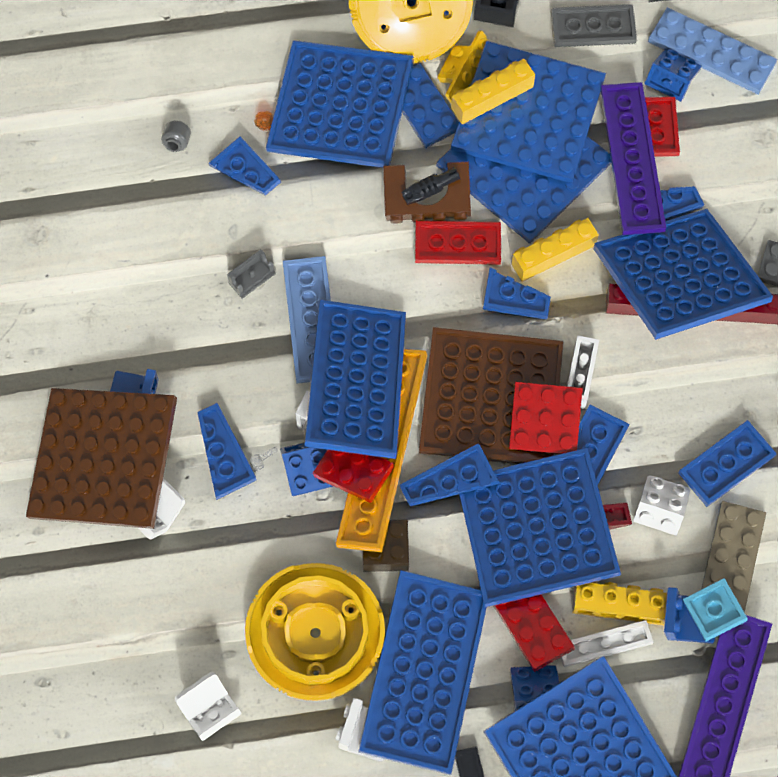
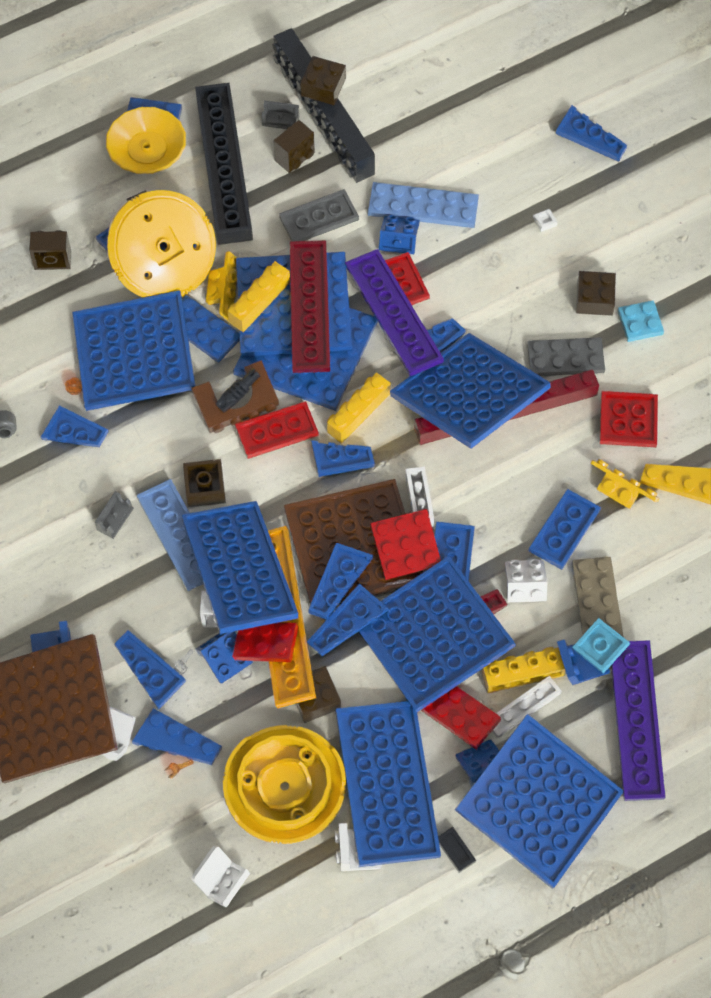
camera: 20 degrees left, 5 degrees down
(212, 570) = (177, 767): none -> clear orange hand
(217, 533) = (168, 735): none -> blue wing
(358, 273) = (204, 483): none -> dark brown brick
(461, 426) = (339, 576): none -> blue wing
(543, 121) = (309, 307): none -> dark red plate

